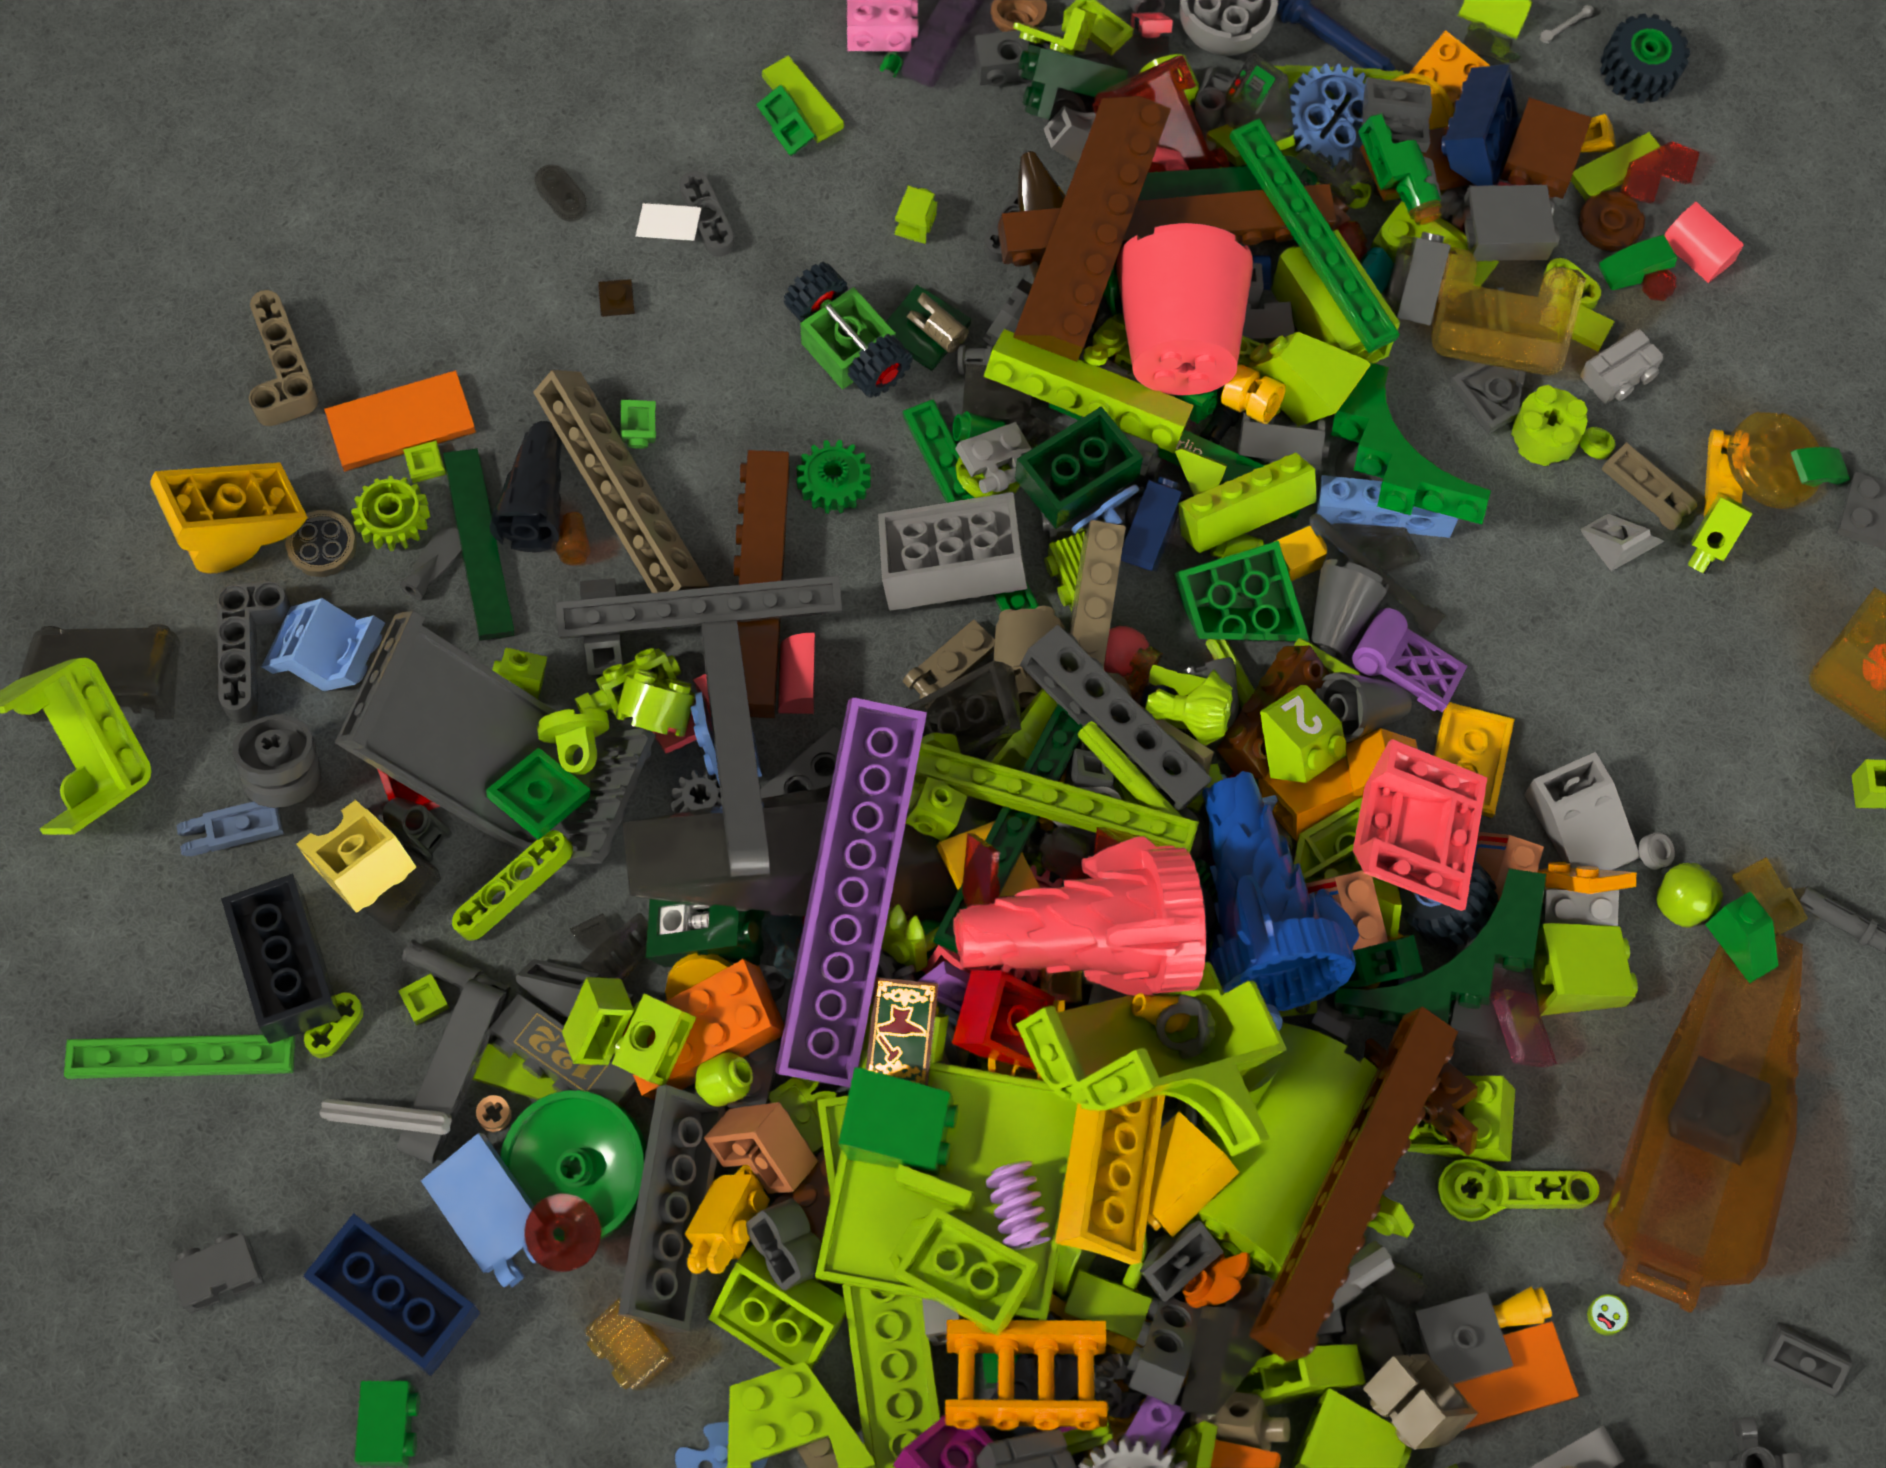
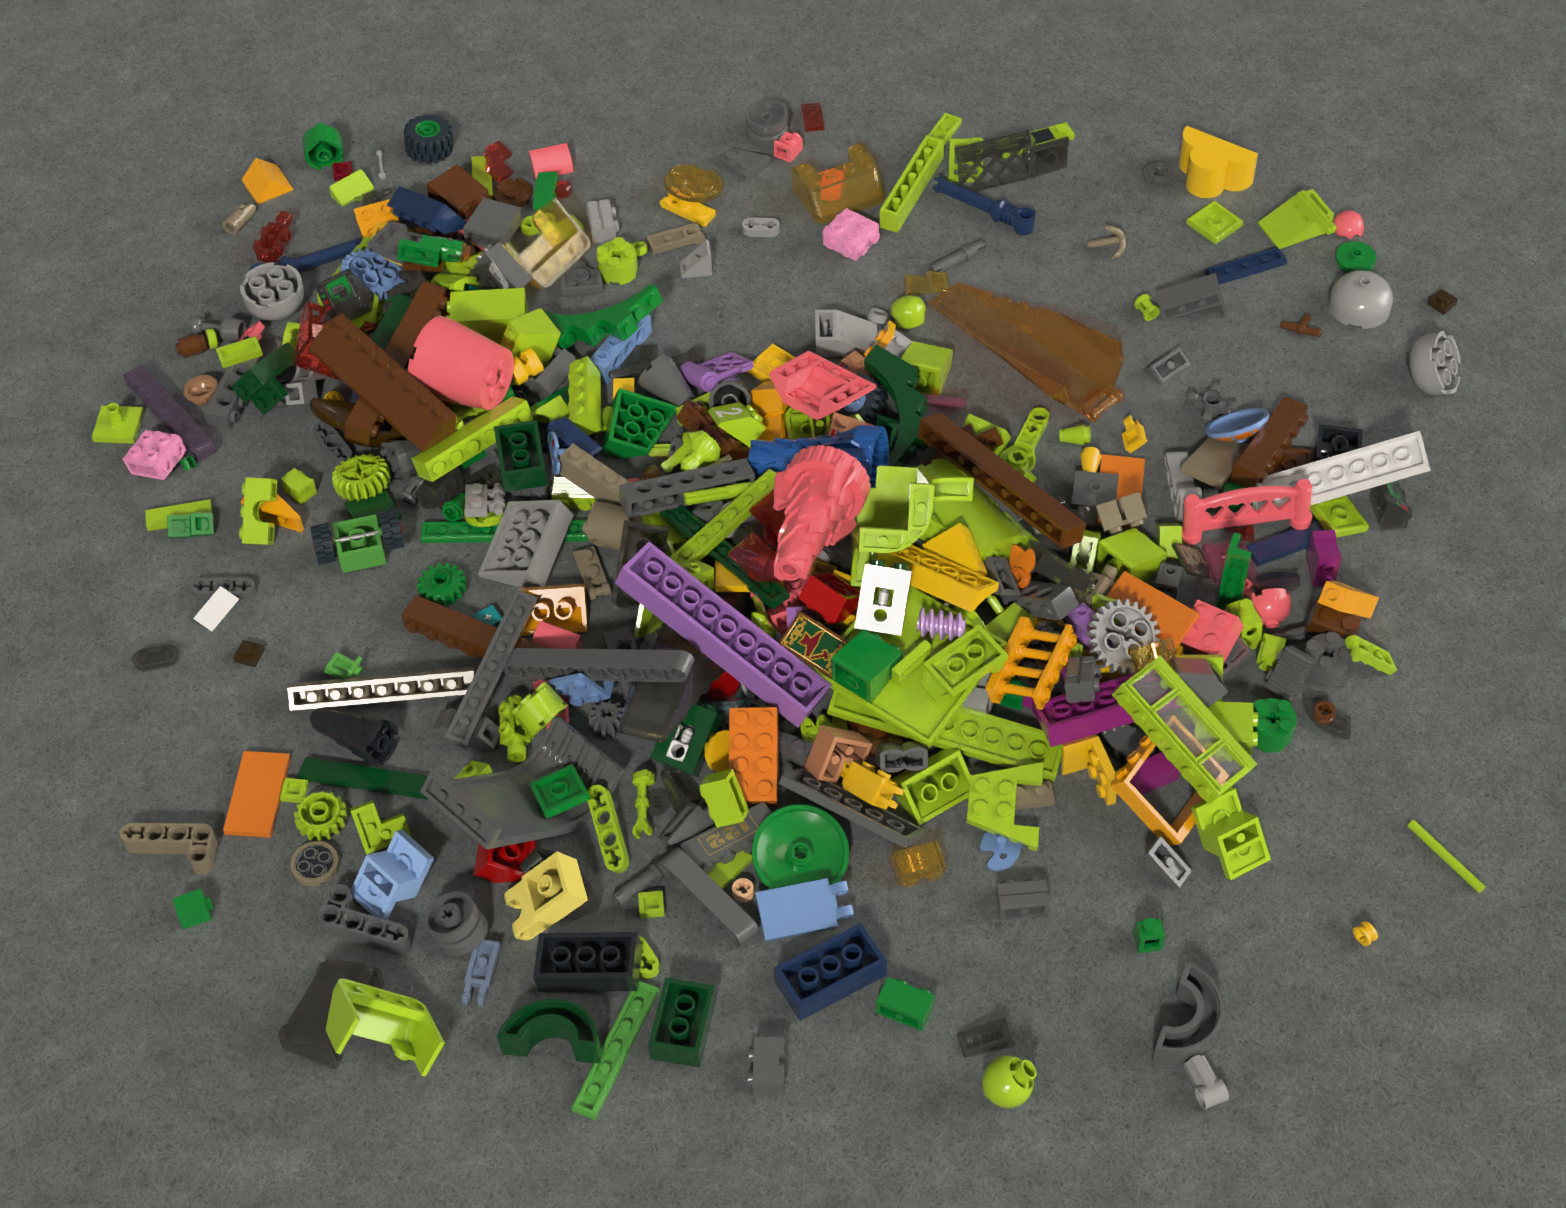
camera: 60 degrees left, 15 degrees down
(179, 980) = (551, 1020): none -> dark green brick
(191, 434) = (193, 908): none -> green brick
(227, 511) = (269, 896): yellow brick -> none
(236, 1126) = (682, 1022): none -> dark green brick
(386, 1116) = (719, 937): light grey axle -> none
(387, 584) = (372, 832): none -> lime plate
(543, 929) = (641, 780): none -> lime piece
(573, 540) = (404, 726): clear orange cone -> none
(574, 731) = (532, 758): lime tile -> none
(580, 1229) = (839, 866): clear red dish -> none
(671, 1032) = (748, 757): lime brick -> none
(723, 1079) = (791, 751): lime head -> none
(807, 562) = (489, 615): none -> teal tile
(811, 199) = (256, 492): none -> lime arch
(863, 642) = (559, 606): none -> light orange slope
(865, 198) = (280, 514): none -> light orange slope
(940, 326) = (383, 495): dark tan hinge -> none
(966, 275) = (361, 477): none -> lime gear
(986, 1103) = (889, 577): none -> brick
(1076, 28) = (241, 353): lime bracket -> none
(1150, 1007) = (869, 518): yellow cone -> none
(1206, 1023) = (889, 504): dark grey piece -> none
(1314, 235) = (449, 298): green tile -> none
(1365, 220) = (452, 281): none -> lime slope
(1570, 1263) = (1076, 435): none -> lime cone
(1607, 1315) = (1108, 432): tile -> none
(1620, 1359) = (1134, 435): none -> yellow plate
(1719, 1110) = (1029, 339): clear smoke brick -> none
(1723, 517) = (720, 216): lime torso -> none
(1746, 936) = (942, 296): green slope -> none
(1749, 597) = (761, 227): none -> light grey beam
(1804, 737) = (851, 234): none -> bright pink brick
(1820, 465) = (708, 166): green slope -> none

